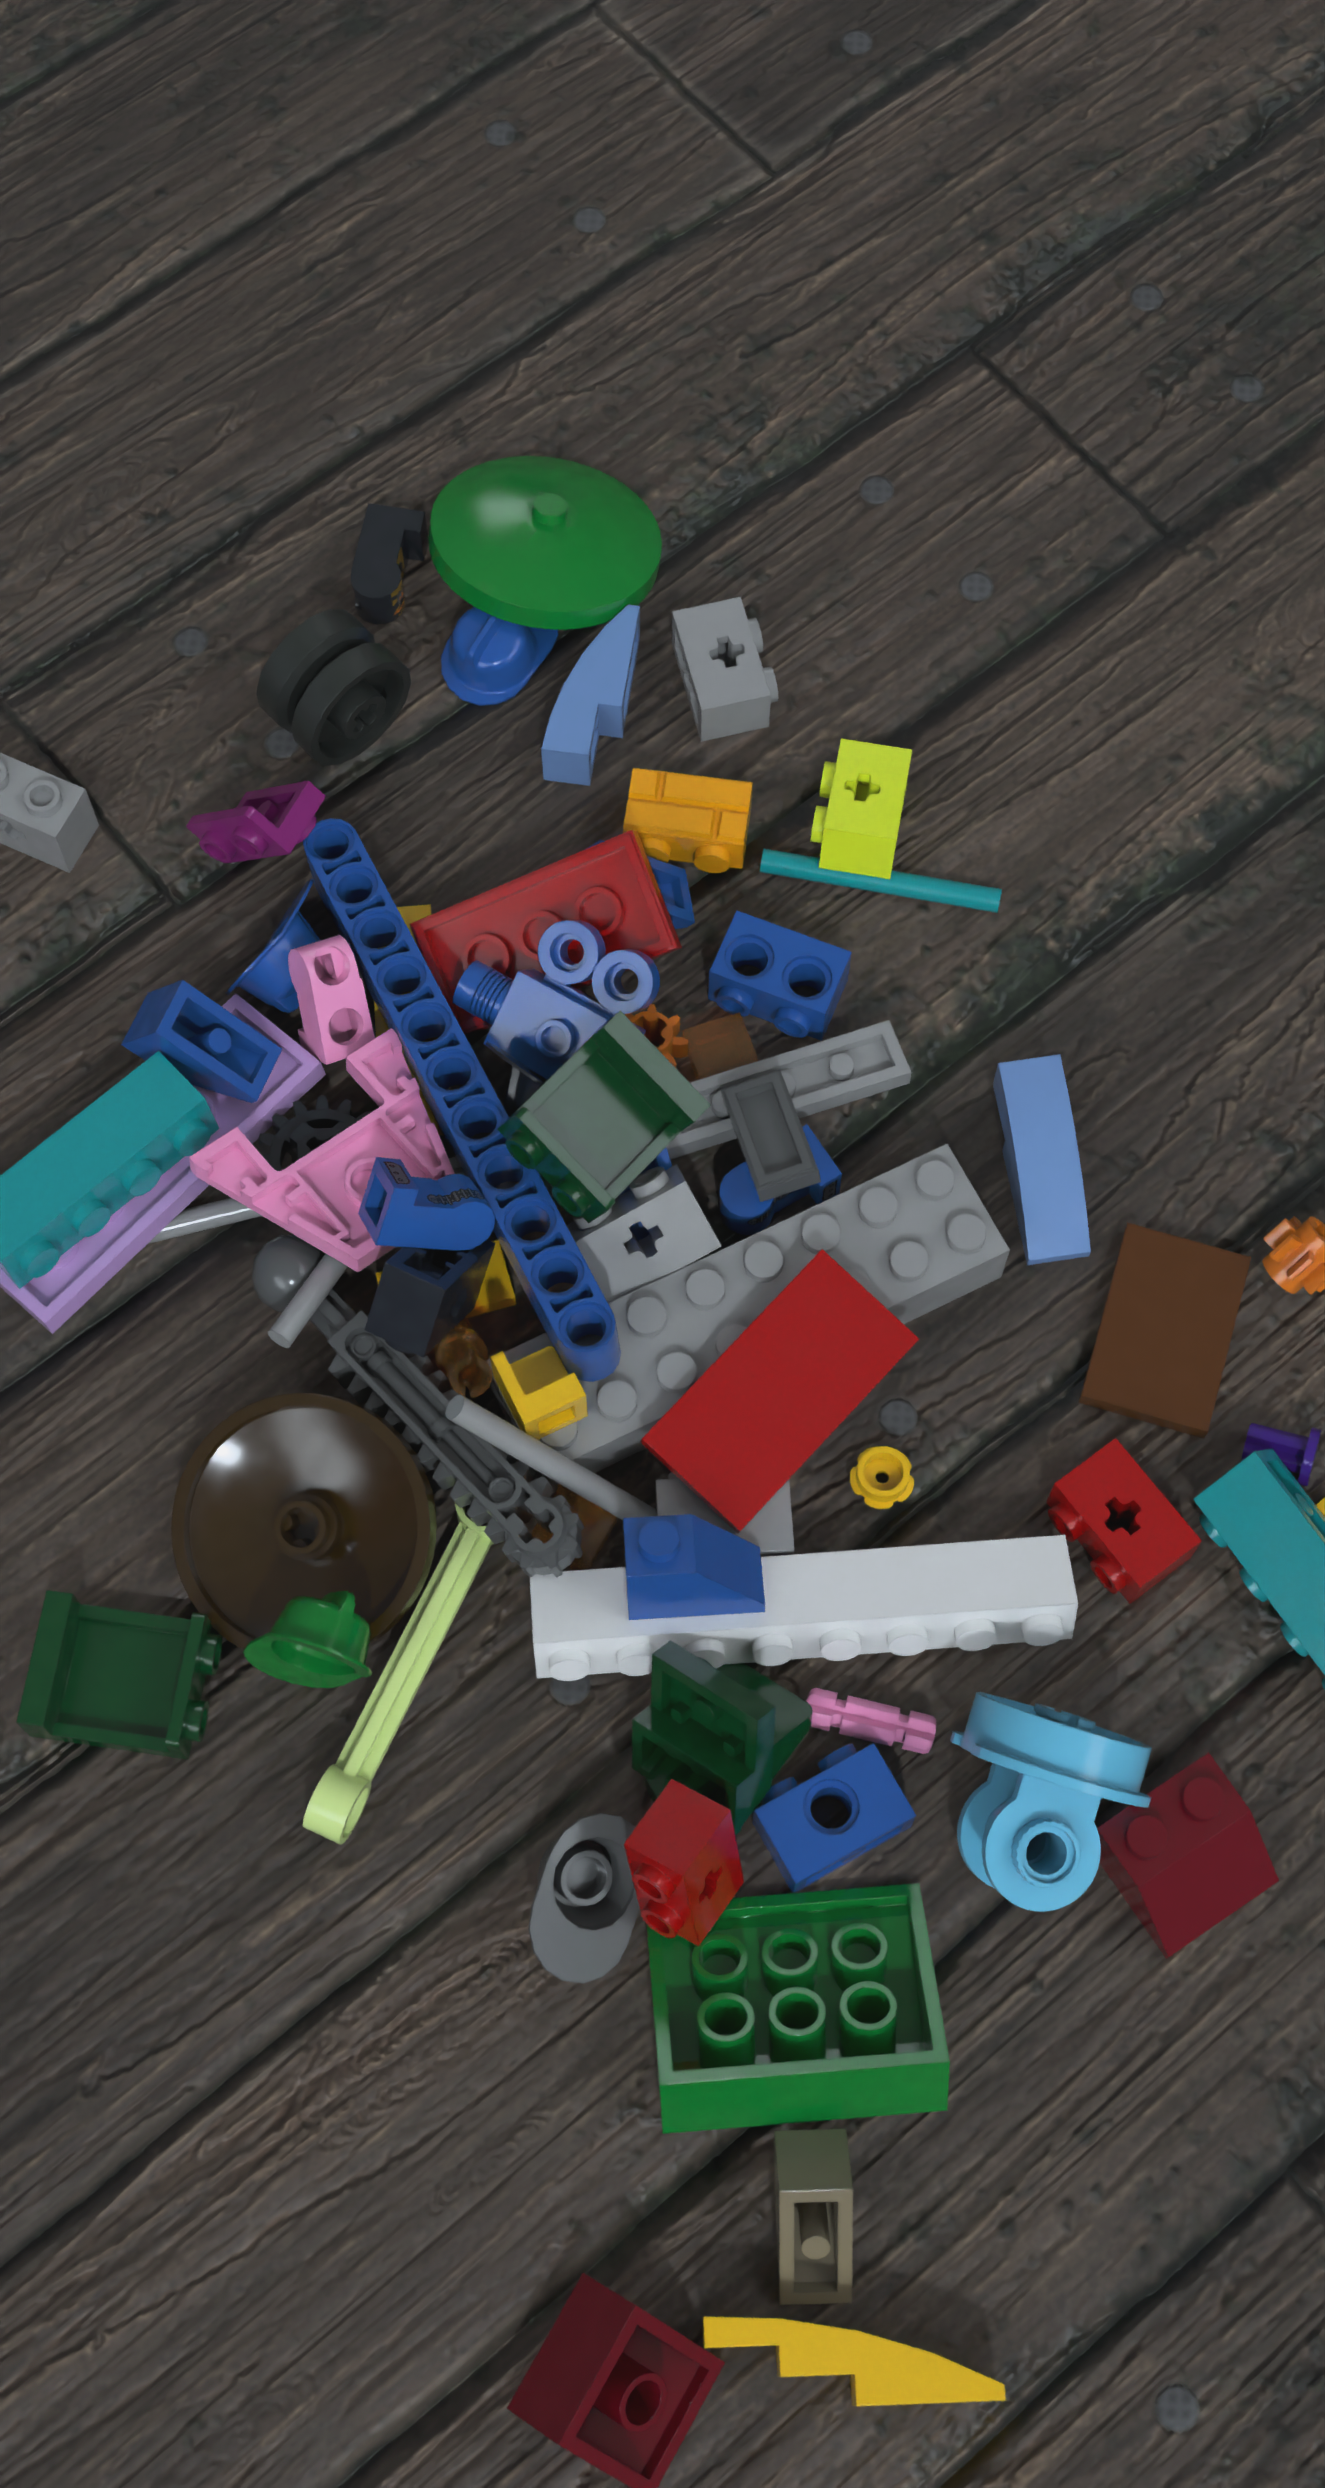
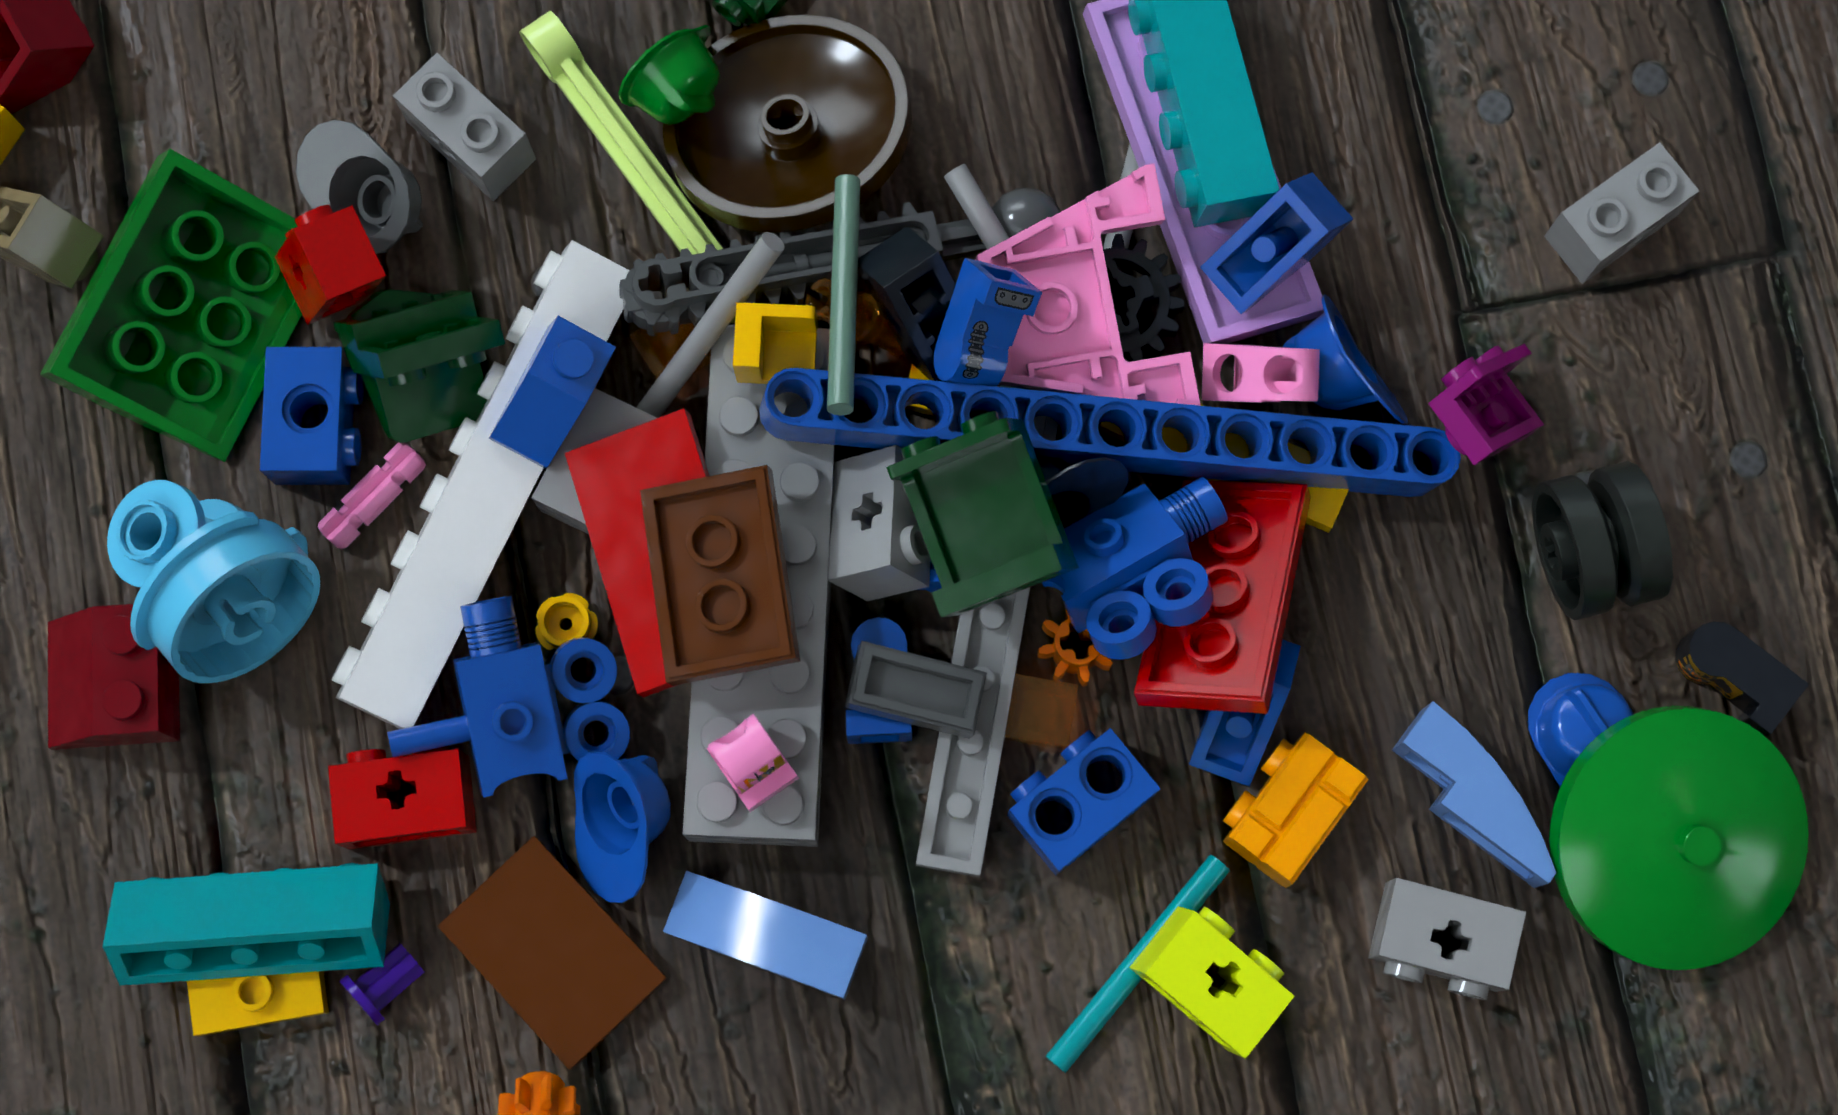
camera: 120 degrees right, 10 degrees up
(462, 1340) = (843, 295): none -> sand green bar
(466, 1836) = (465, 126): none -> light grey brick
(778, 1315) = (719, 575): none -> reddish brown tile
(924, 1197) = (752, 763): none -> bright pink leg
(986, 1466) = (513, 702): none -> blue piece
(1030, 1325) = (616, 818): none -> blue piece

